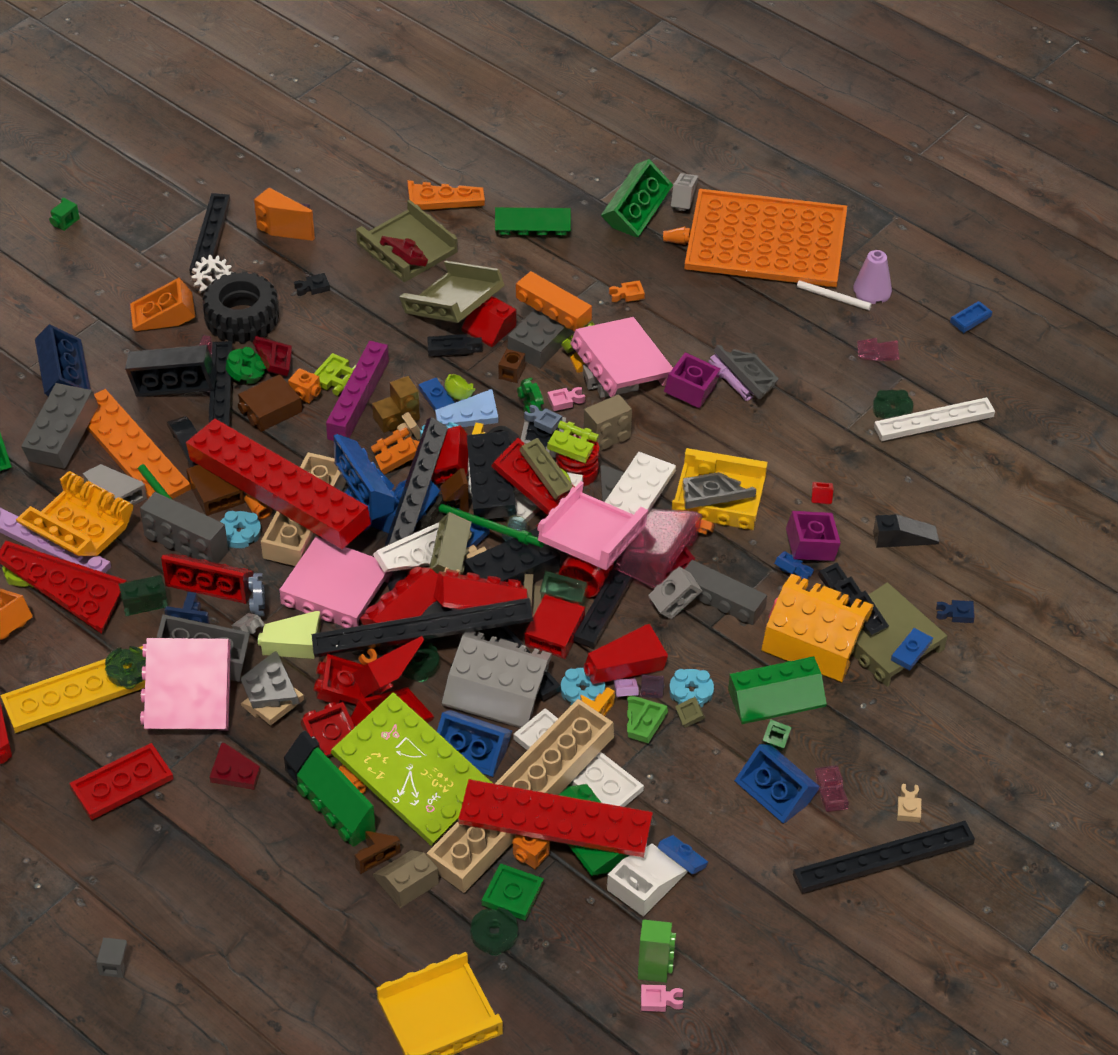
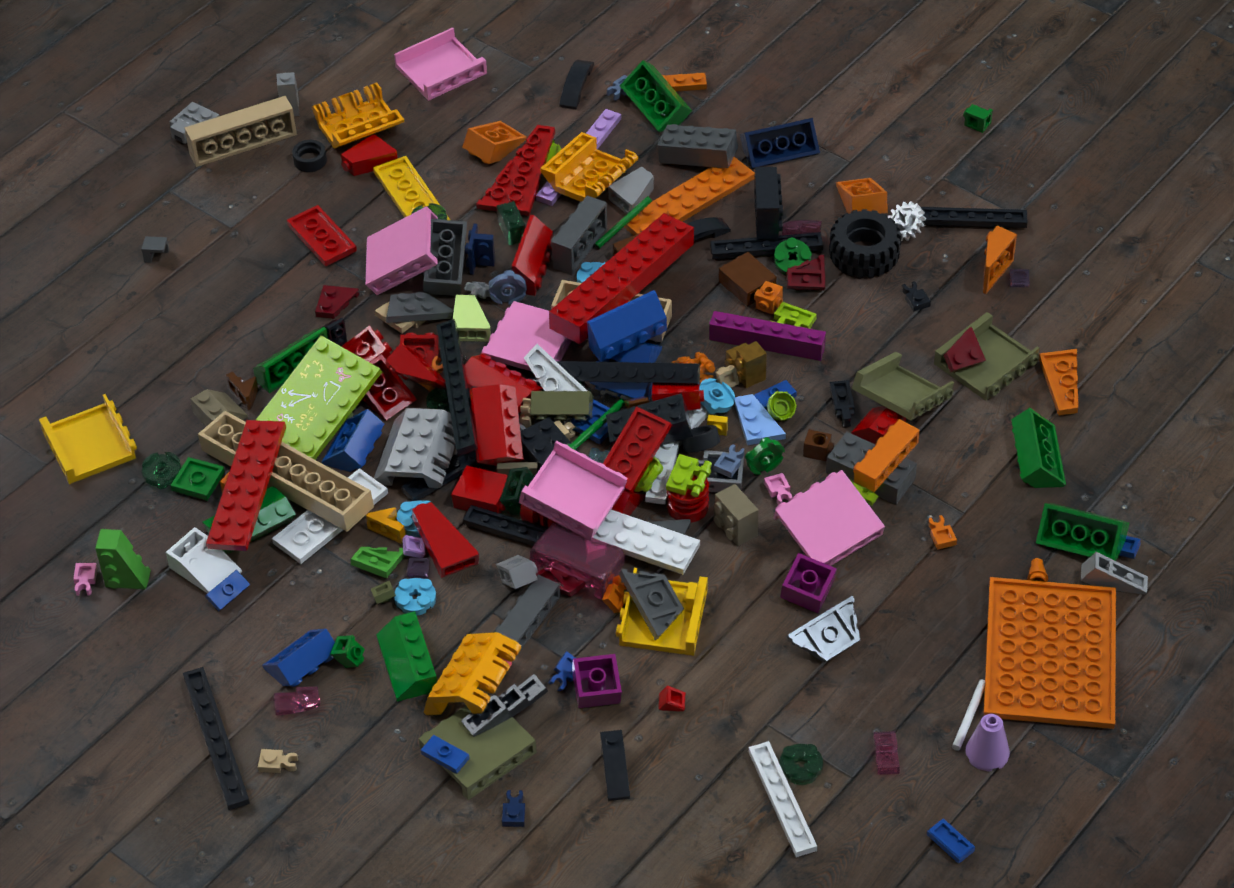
camera: 90 degrees right, 0 degrees up
(546, 468) = (638, 449): olive plate -> none

